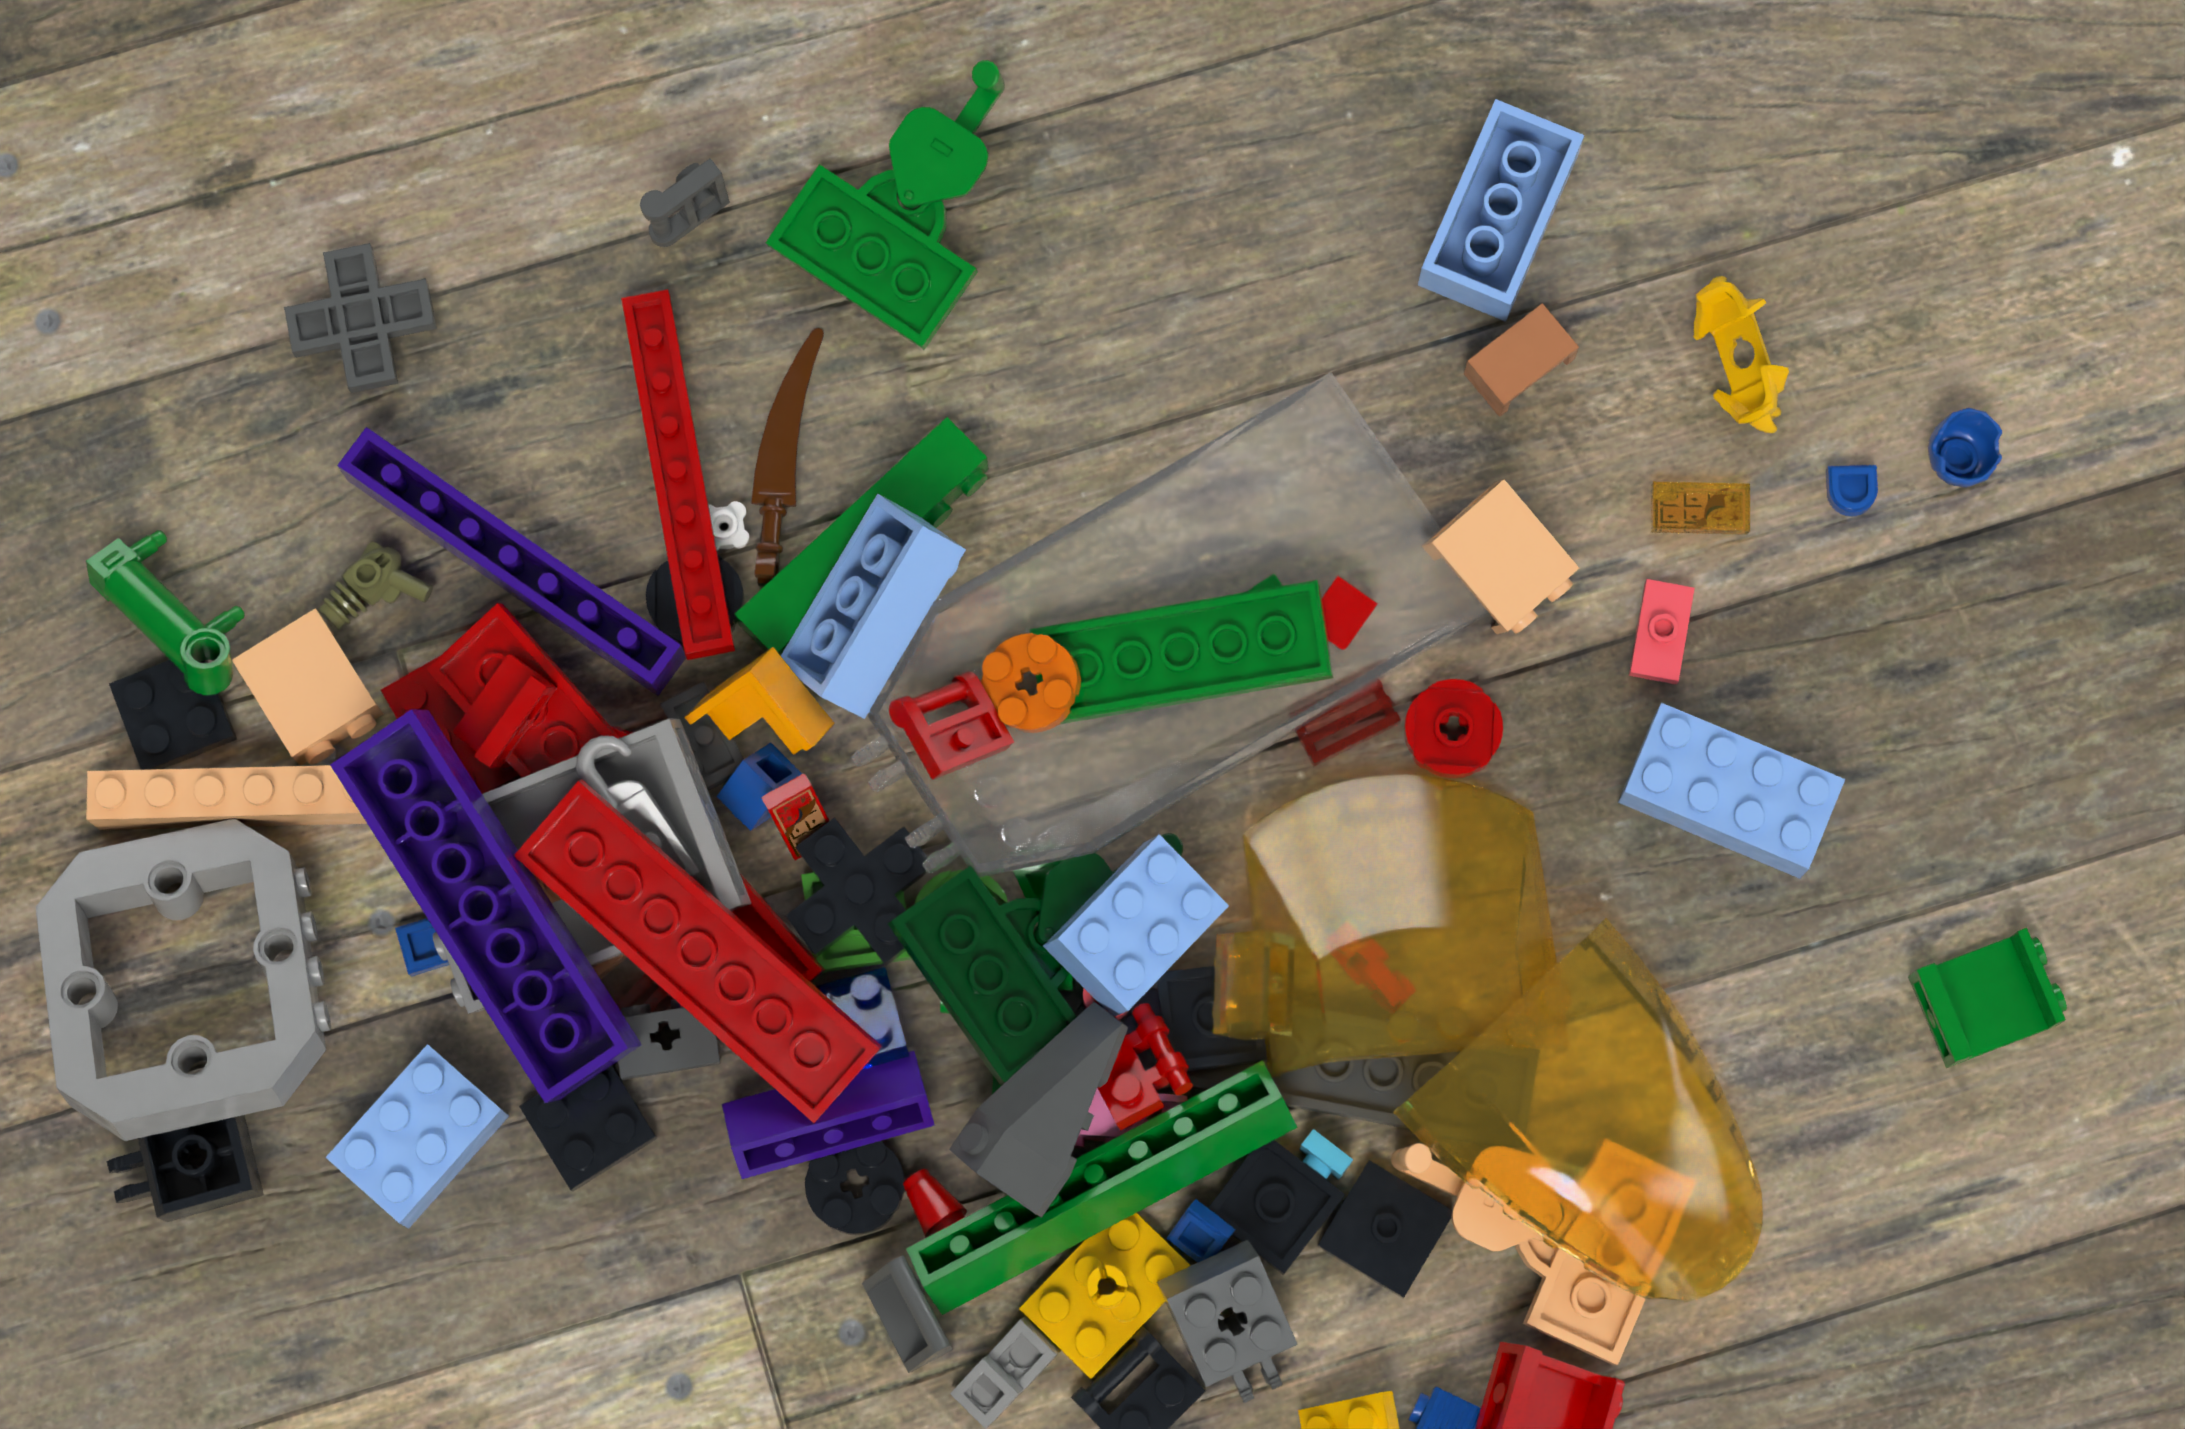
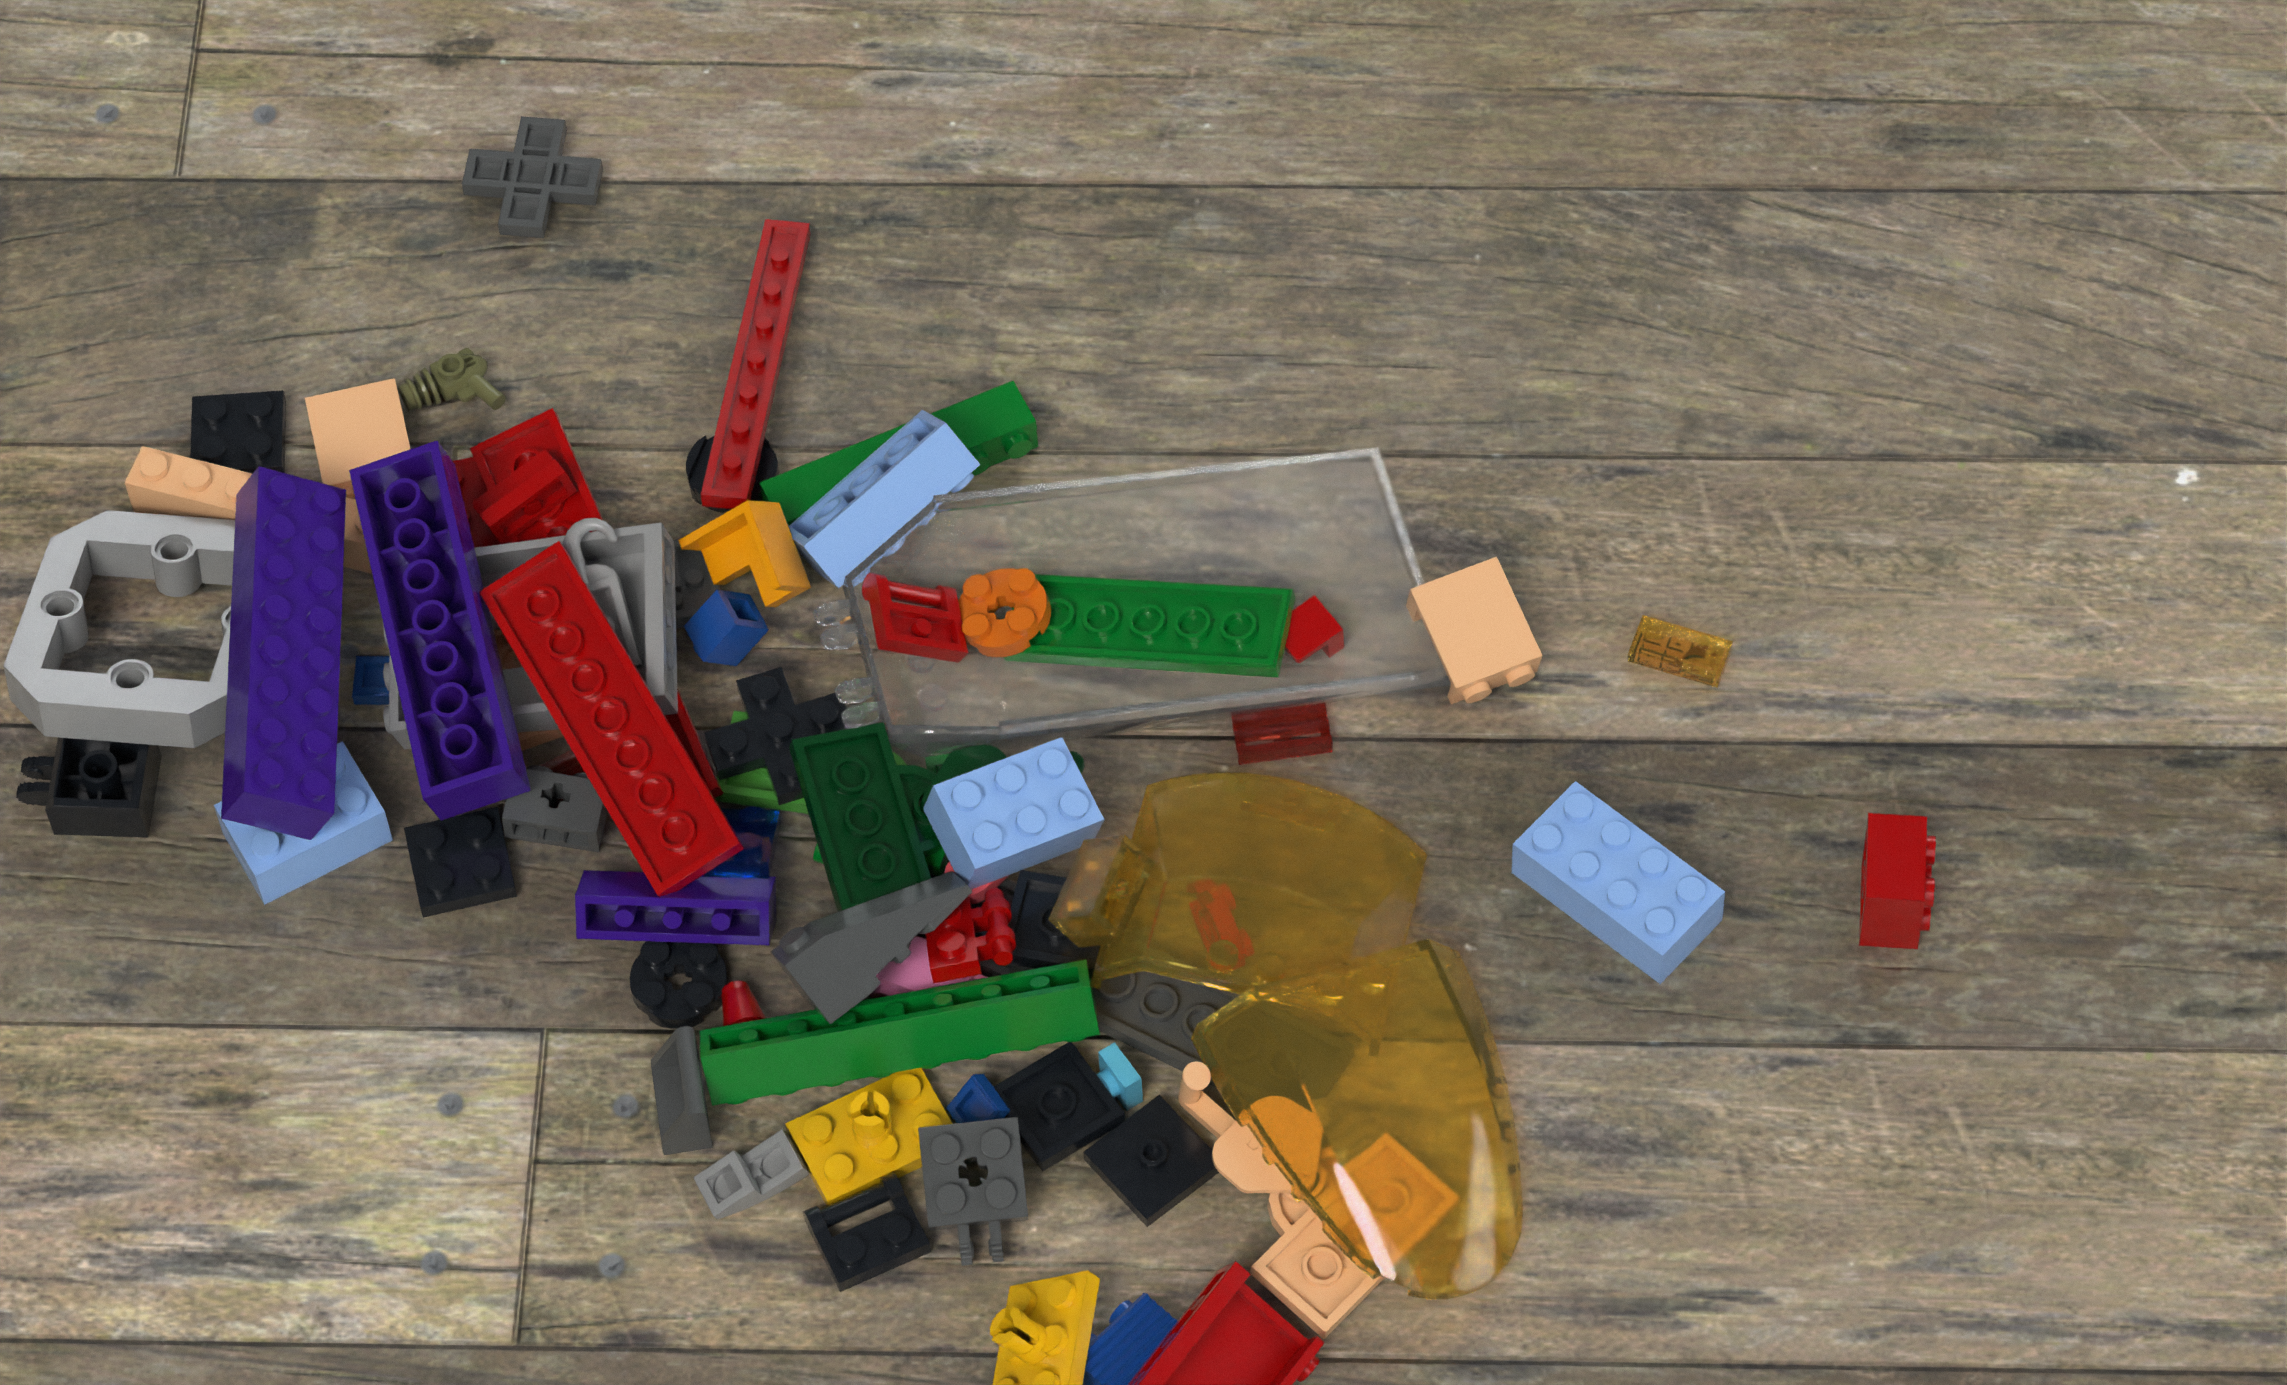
camera: 20 degrees right, 20 degrees down
(162, 617) = (276, 379): green piece -> none
(341, 986) = (284, 654): none -> dark purple brick
(512, 561) = (582, 392): dark purple brick -> none
(696, 195) = (865, 155): dark grey plate -> none
(735, 535) = (788, 432): white plate -> none
(777, 457) = (849, 388): reddish brown sword -> none
(795, 811) = (746, 647): tile -> none
(873, 247) = (1015, 249): green plate -> none
(1474, 710) = (1384, 787): red plate -> none
(1500, 210) = (1581, 355): light blue brick -> none
(1520, 358) = (1554, 476): nougat panel -> none
(1661, 631) = (1604, 740): coral plate -> none
(1754, 389) = (1761, 499): yellow piece -> none
(1851, 488) = (1829, 674): blue tile -> none
(1965, 447) = (1945, 660): blue hair -> none
(1988, 998) = (1800, 1131): green panel -> none
(2000, 712) = (1896, 881): none -> red brick

